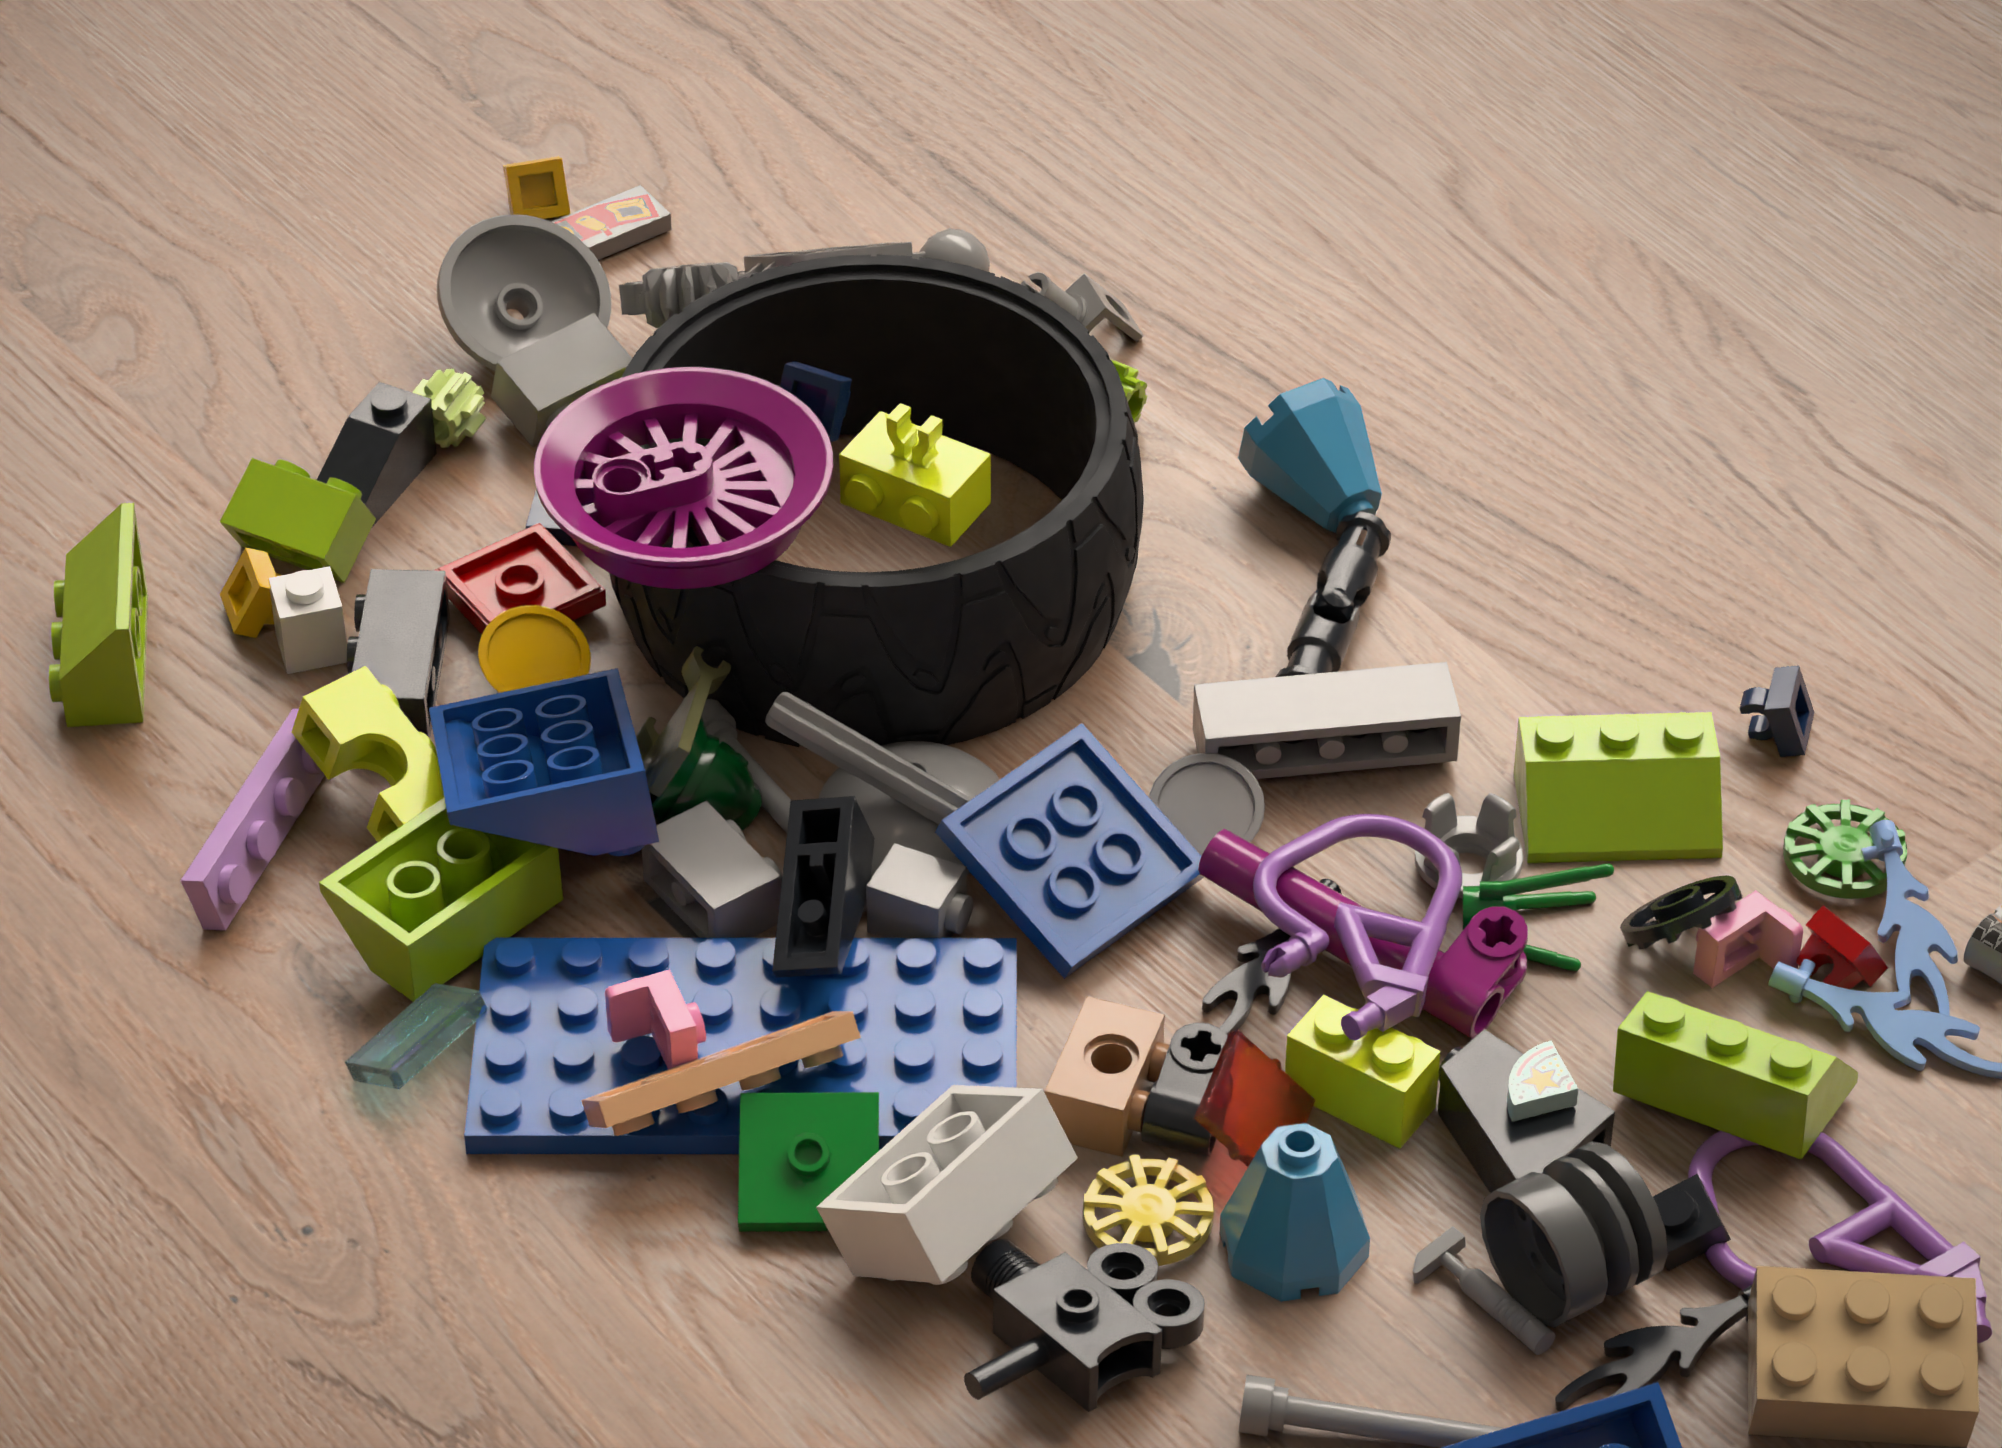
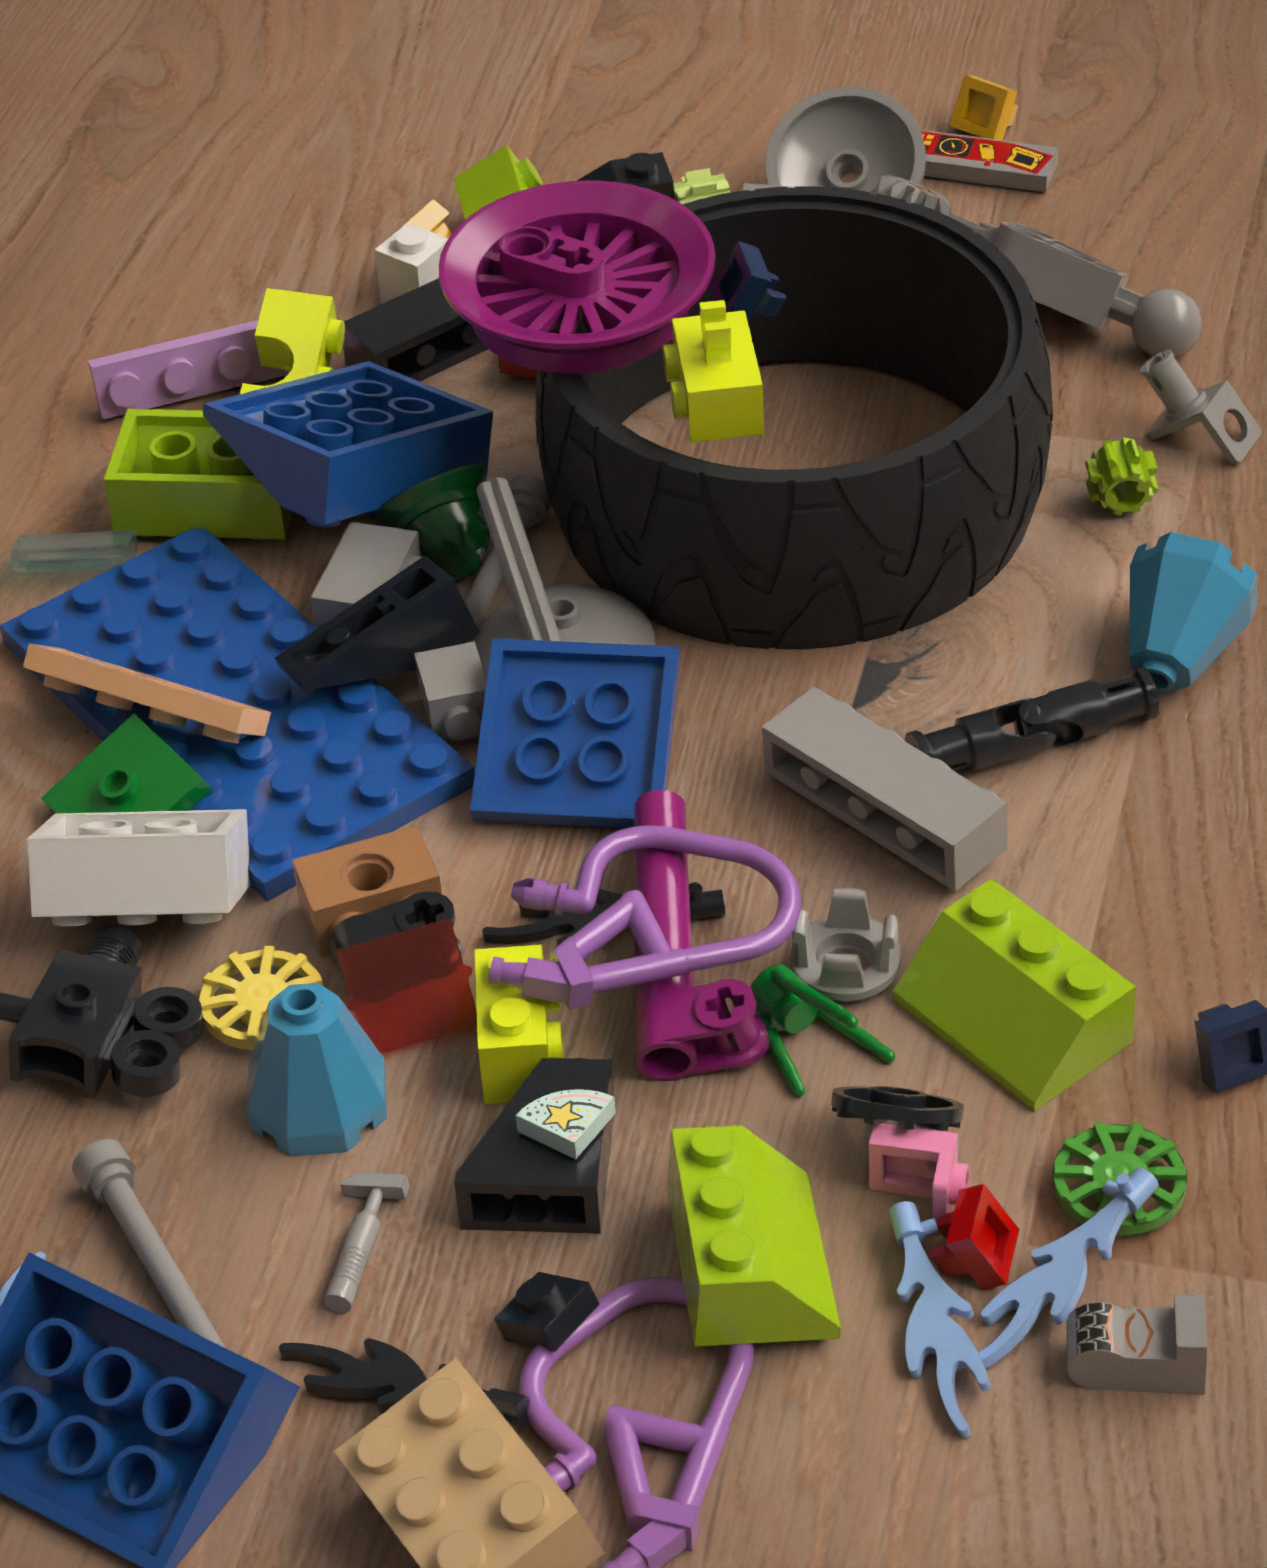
camera: 55 degrees right, 0 degrees up
(102, 626) = (306, 198): lime slope -> none
(532, 648) = (496, 385): yellow piece -> none
(656, 1007) = (168, 633): bright pink bracket -> none
(666, 752) = (409, 472): olive flag -> none
(1209, 795) = (724, 780): light grey piece -> none
(1574, 1233) = (424, 1237): dark grey wheel -> none

